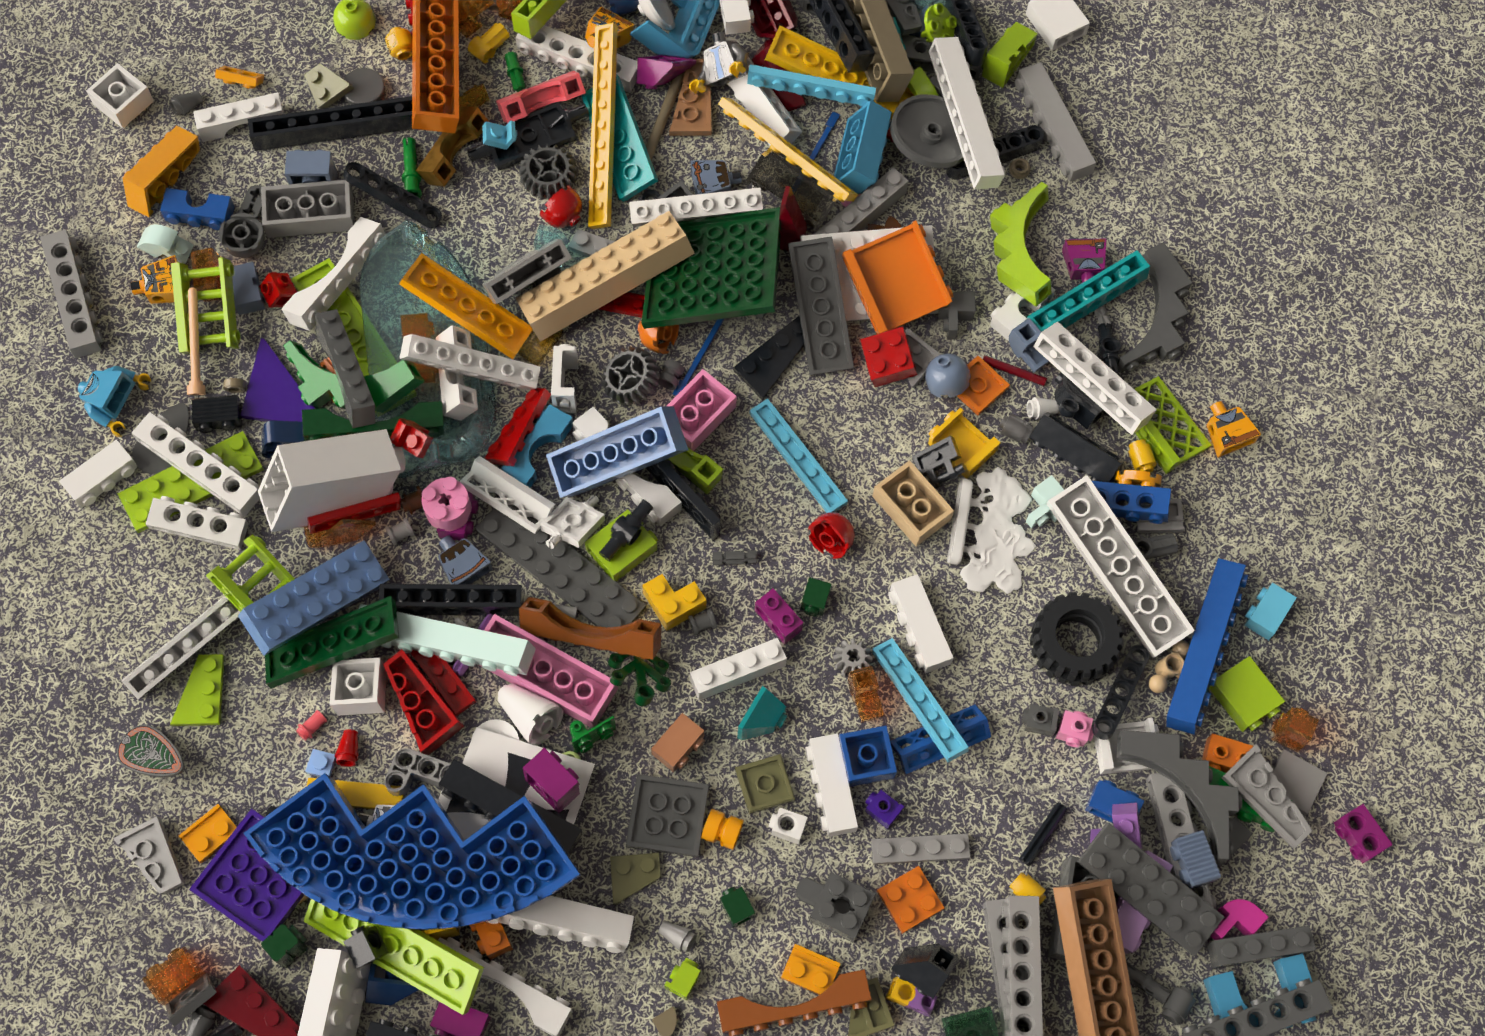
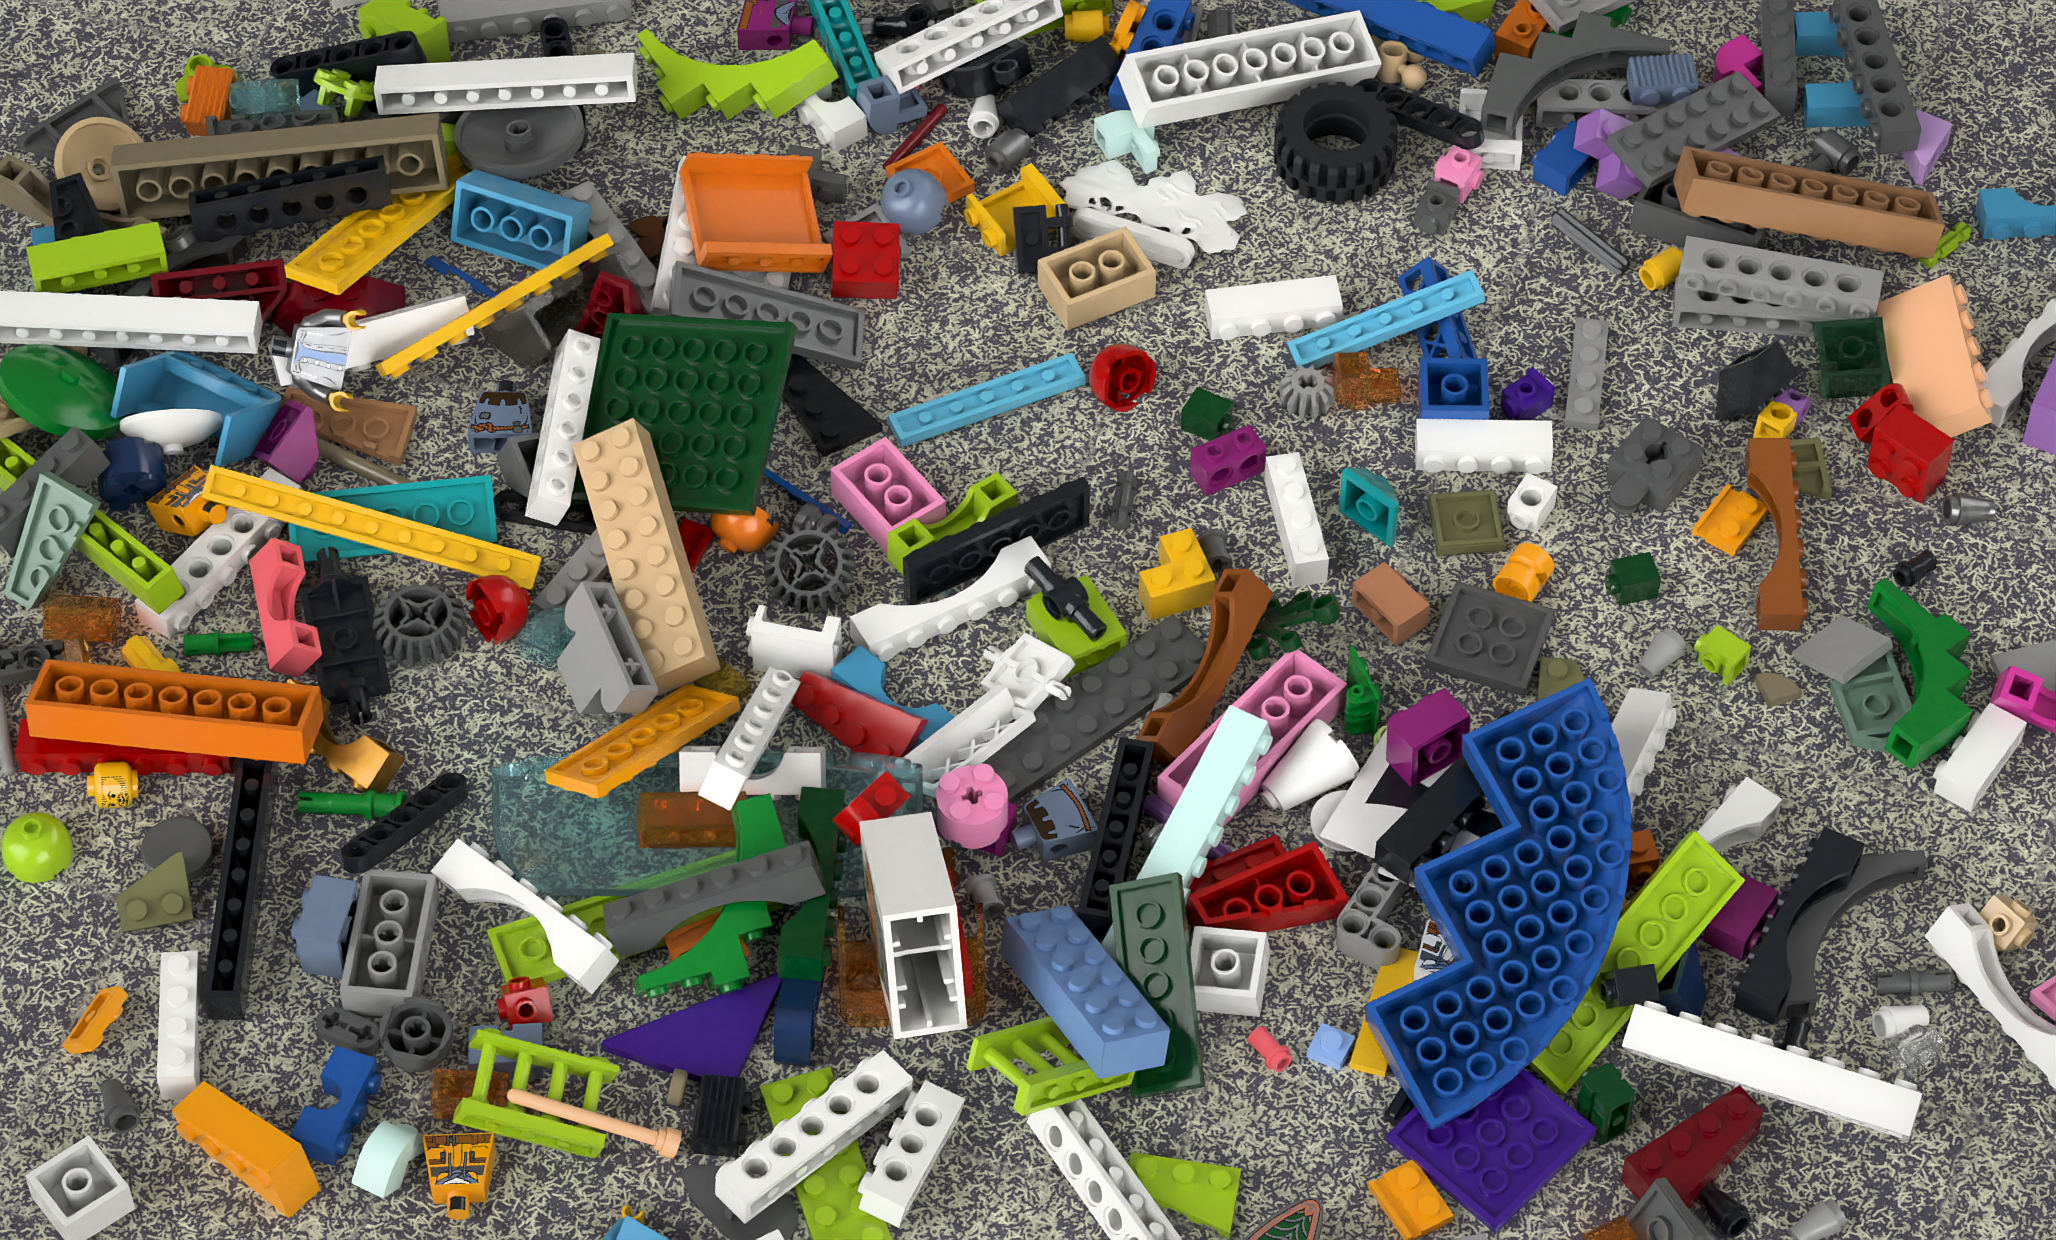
camera: 75 degrees left, 15 degrees down
(347, 750) = (1317, 1006): red cone -> none
(499, 135) = (345, 659): medium azure bracket -> none
(617, 451) = (950, 574): medium blue brick -> none
(810, 85) = (404, 247): medium azure plate -> none
(910, 899) = (1655, 393): orange plate -> none

